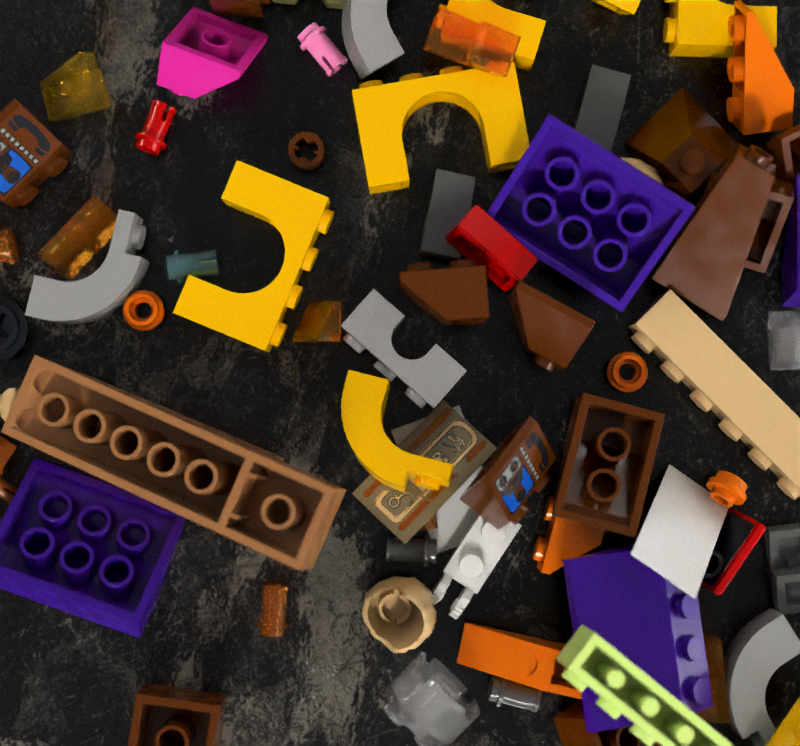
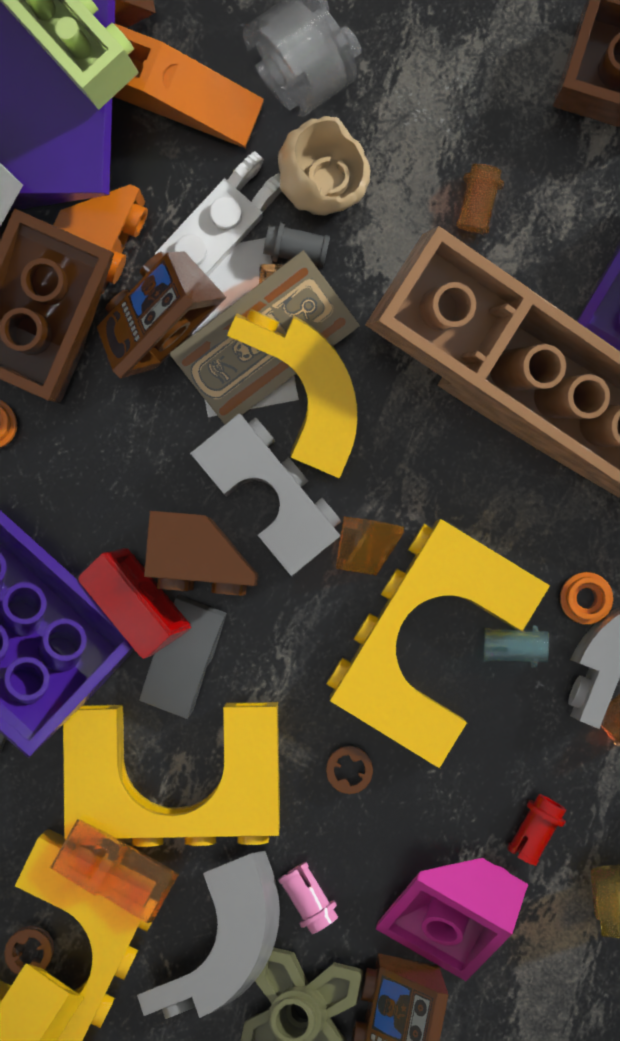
camera: 165 degrees left, 0 degrees up
(513, 694) = (207, 51): dark grey pin -> none
(547, 327) = (79, 490): reddish brown slope -> none

